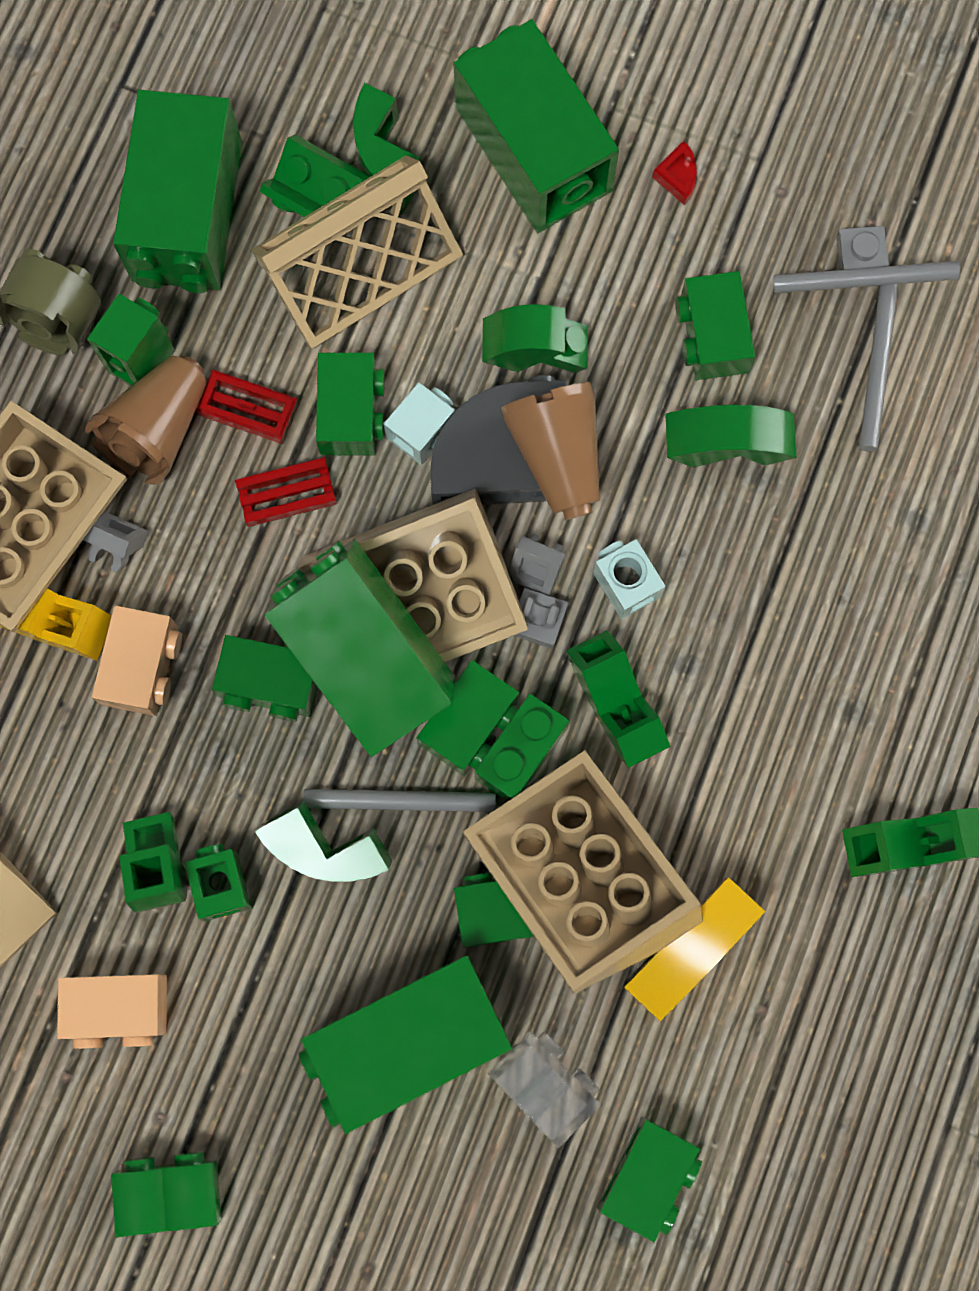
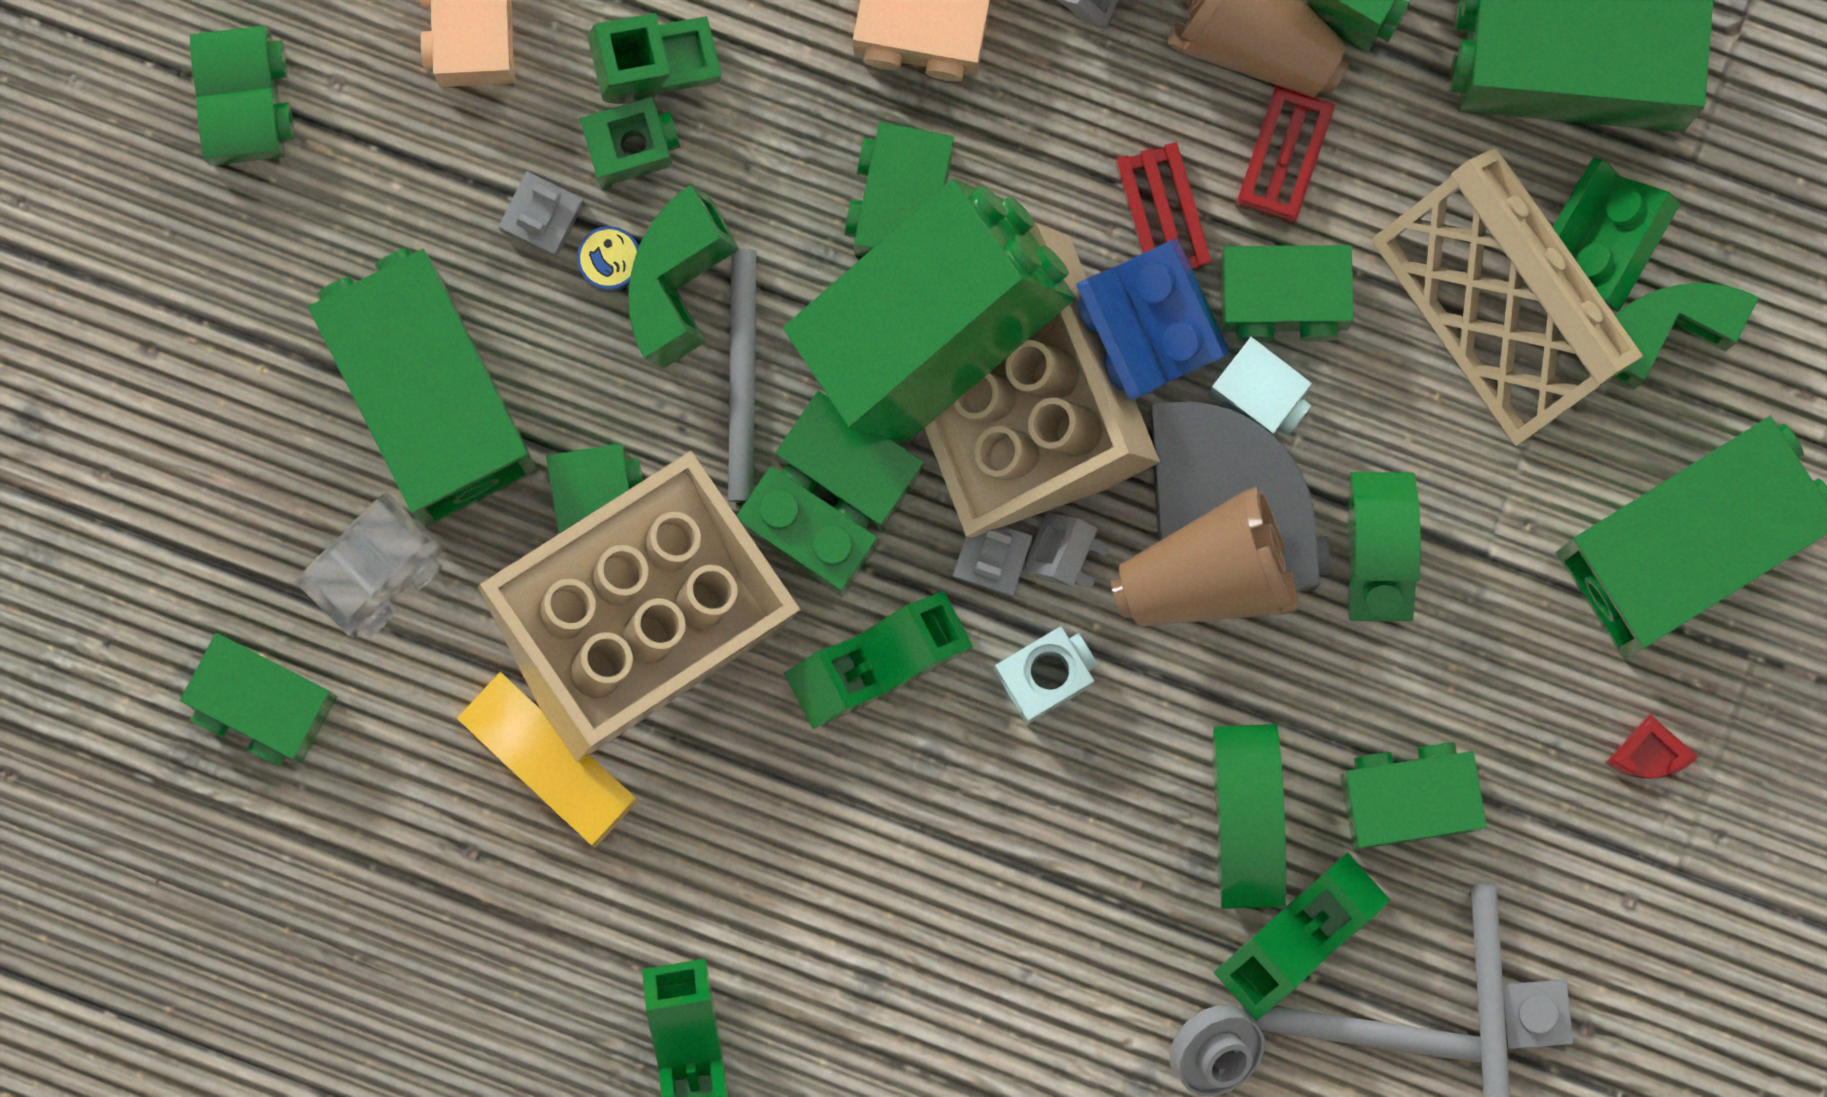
camera: 90 degrees right, 5 degrees up
(270, 954) = (541, 214): none -> light grey tile
(307, 901) = (607, 258): none -> light yellow tile
(366, 493) = (1151, 320): none -> blue bracket
(822, 413) = (1301, 936): none -> green brick
(898, 462) = (1216, 1050): none -> light grey plate

